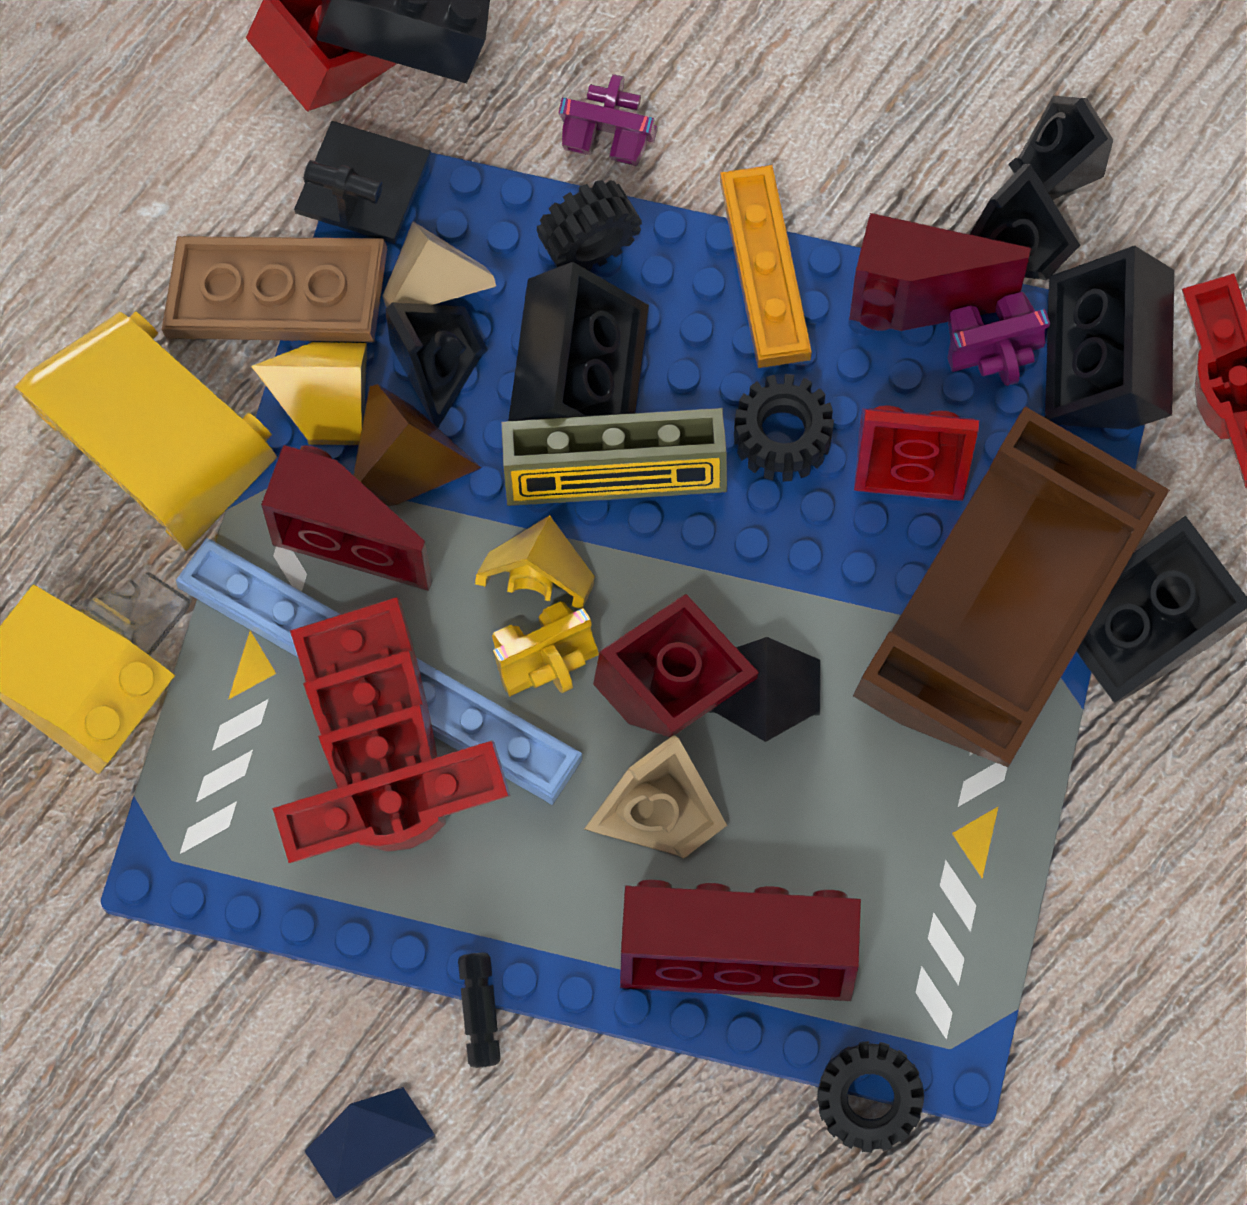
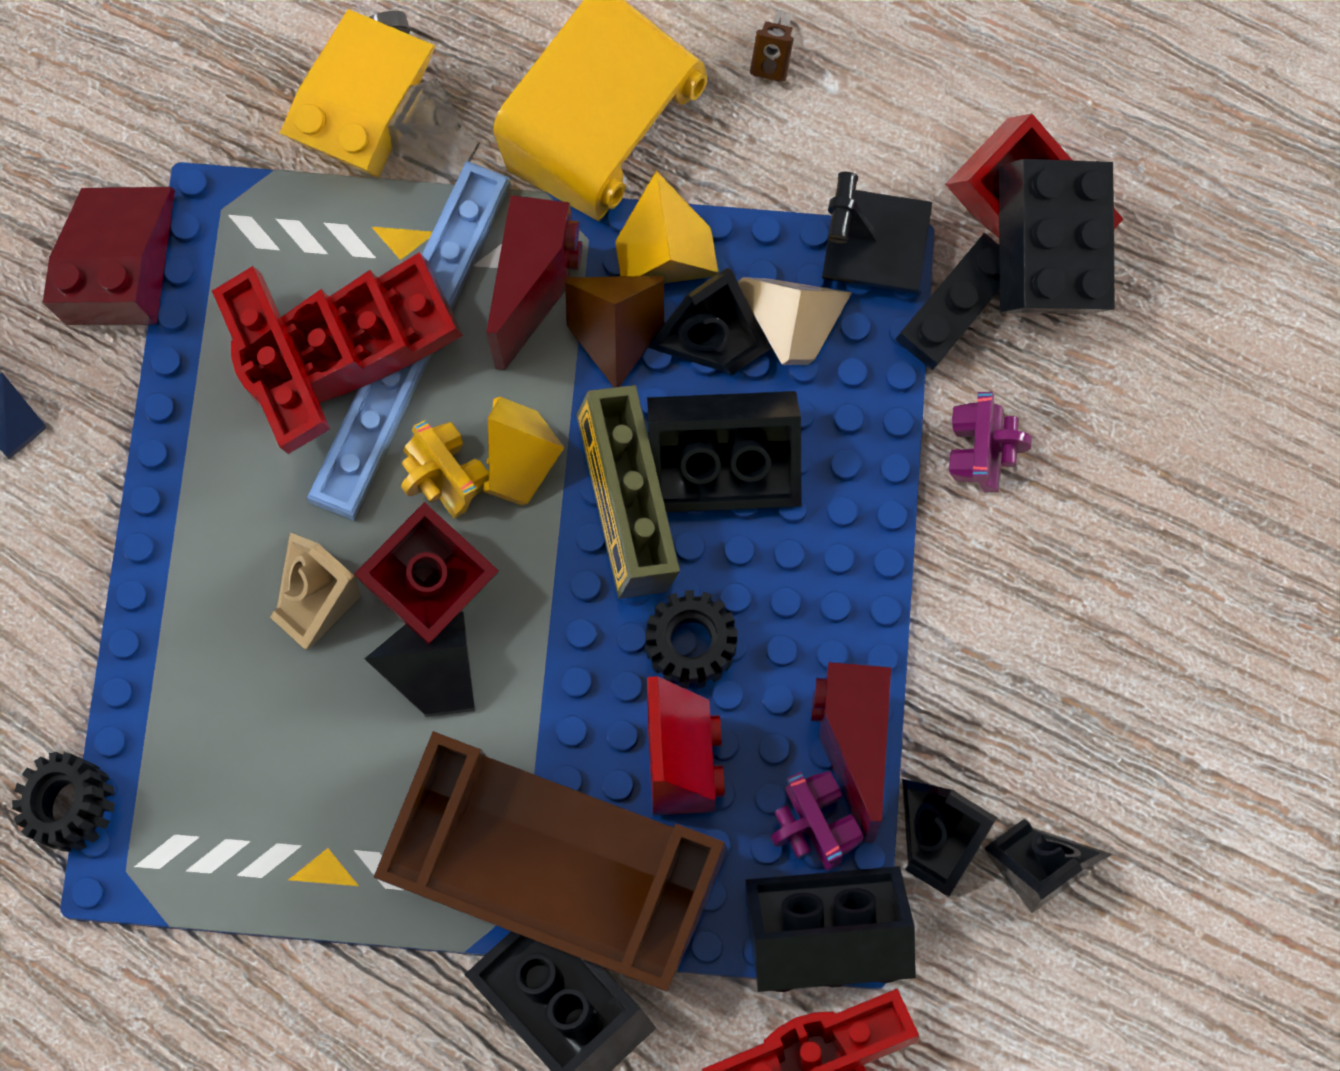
camera: 80 degrees right, 5 degrees up
(110, 247) = (775, 43): none -> reddish brown piece
(208, 978) = (111, 257): none -> dark red slope
(275, 288) = (761, 189): medium nougat tile -> none
(444, 123) = (954, 304): none -> black plate
(479, 1010) = (110, 469): black axle -> none
(589, 225) = (854, 433): black tyre -> none
(740, 941) = (177, 664): dark red brick -> none
(765, 266) = (860, 603): light orange tile -> none

